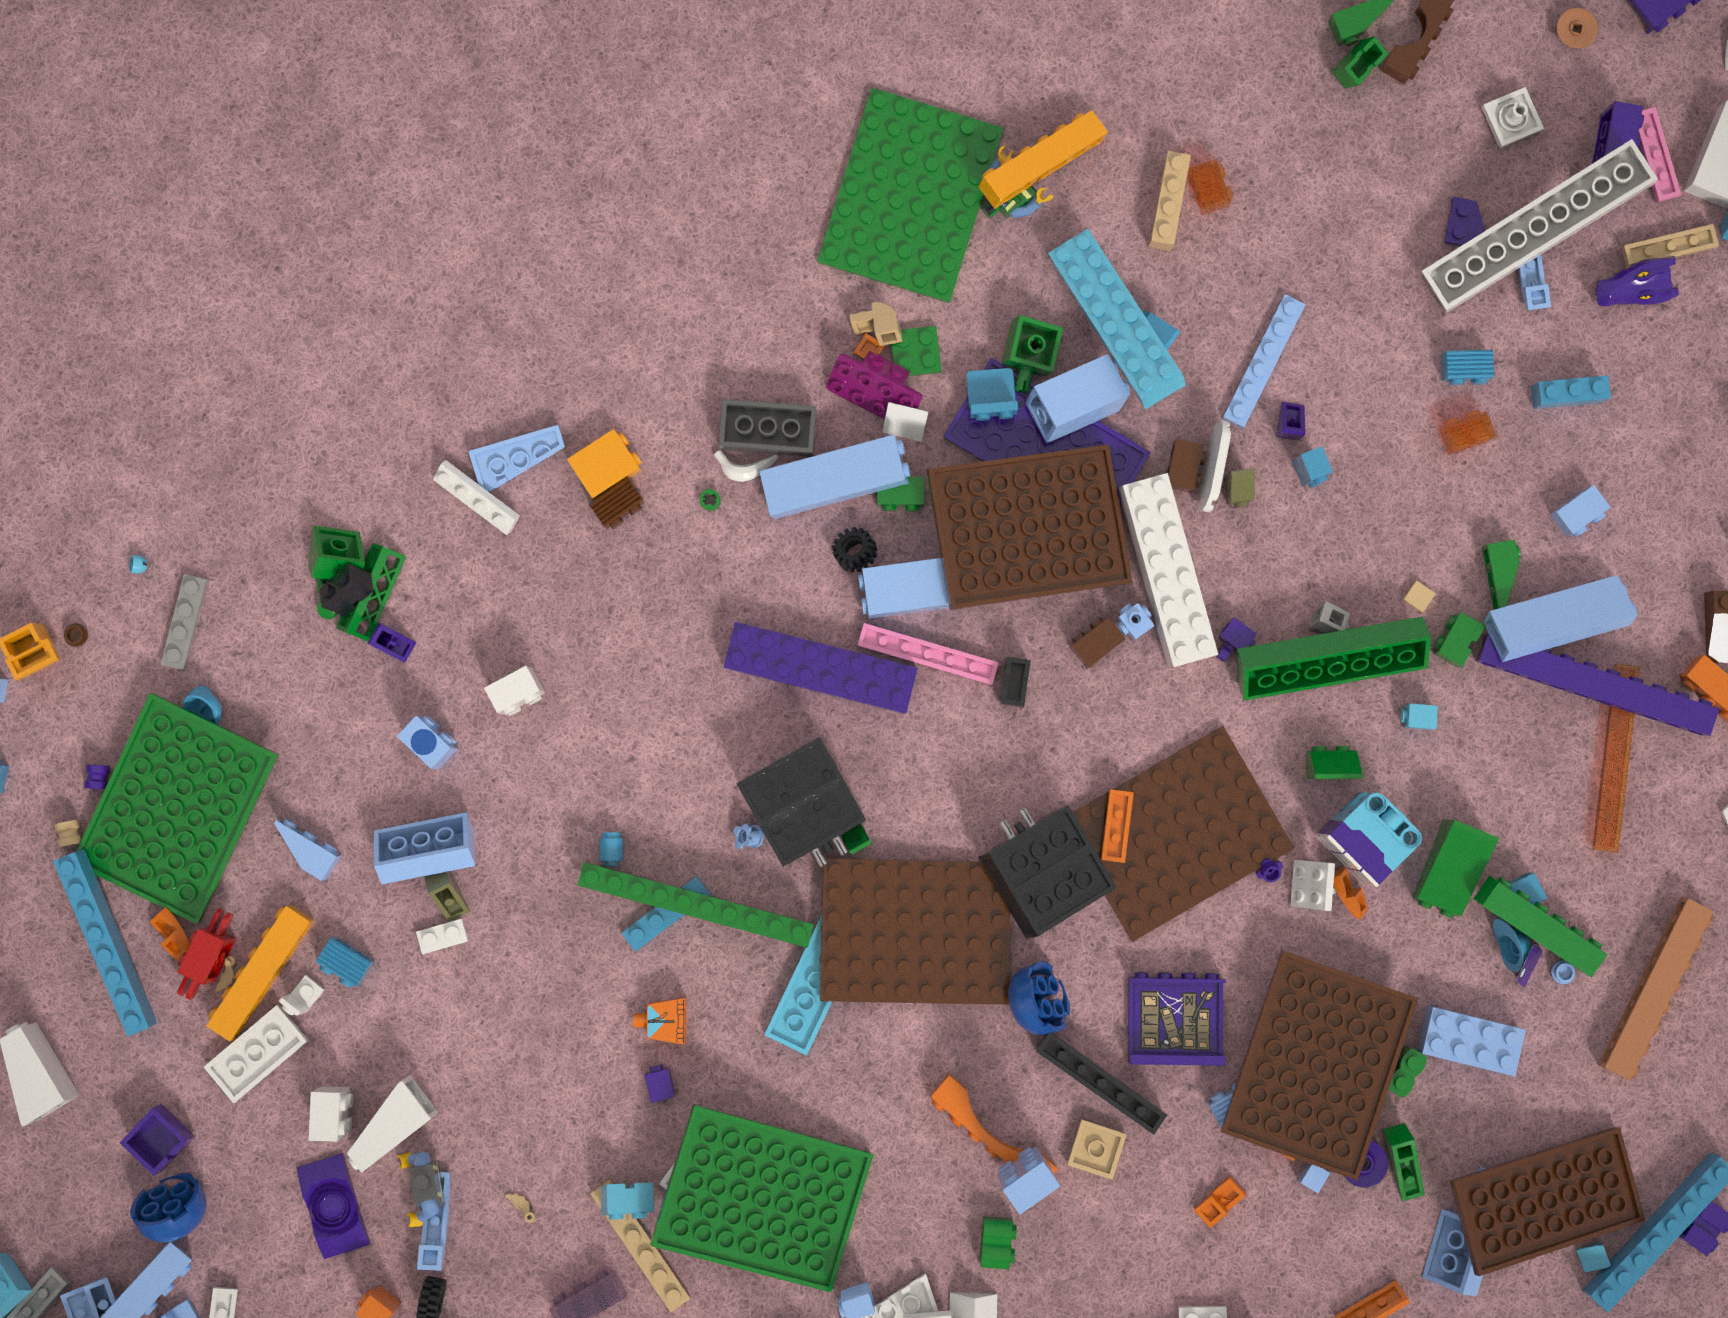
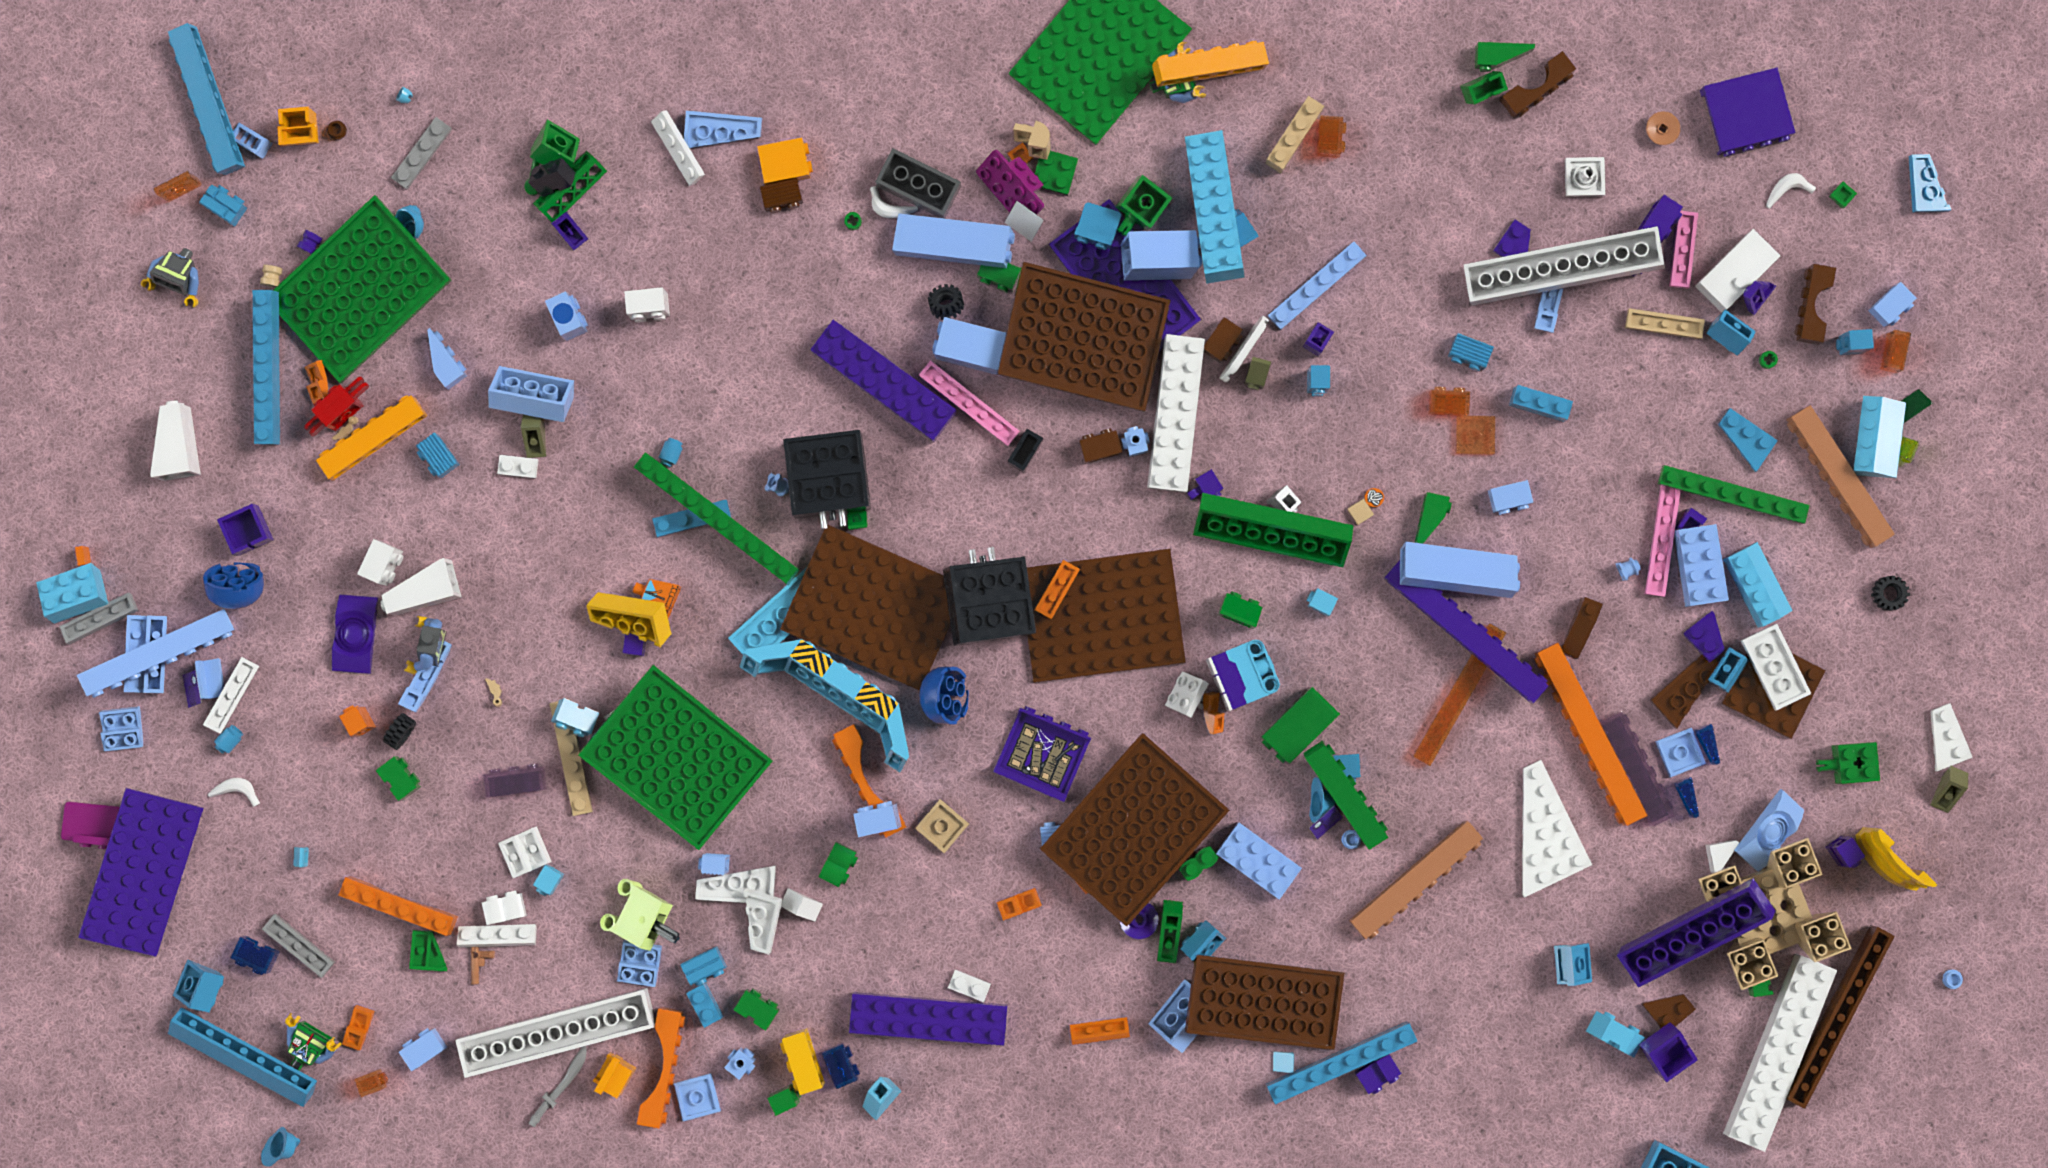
camera: 30 degrees right, 0 degrees up
(256, 1053) = (344, 497): white plate -> none
(302, 997) = (396, 468): white bracket -> none
(643, 1057) = (631, 615): none -> yellow wedge
(919, 1040) = (837, 685): none -> medium azure slope
(1101, 1082) = (965, 776): black brick -> none
(1272, 875) = (1160, 676): dark purple plate -> none
(1313, 1177) = (1097, 915): light blue slope -> none
(1427, 574) = (1374, 497): none -> tile
(1447, 1160) = (1203, 941): none -> dark azure slope
(1455, 642) = (1380, 551): green brick -> none
(1511, 457) = (1475, 435): none -> clear orange tile
(1641, 284) = (1631, 342): dark purple animal -> none

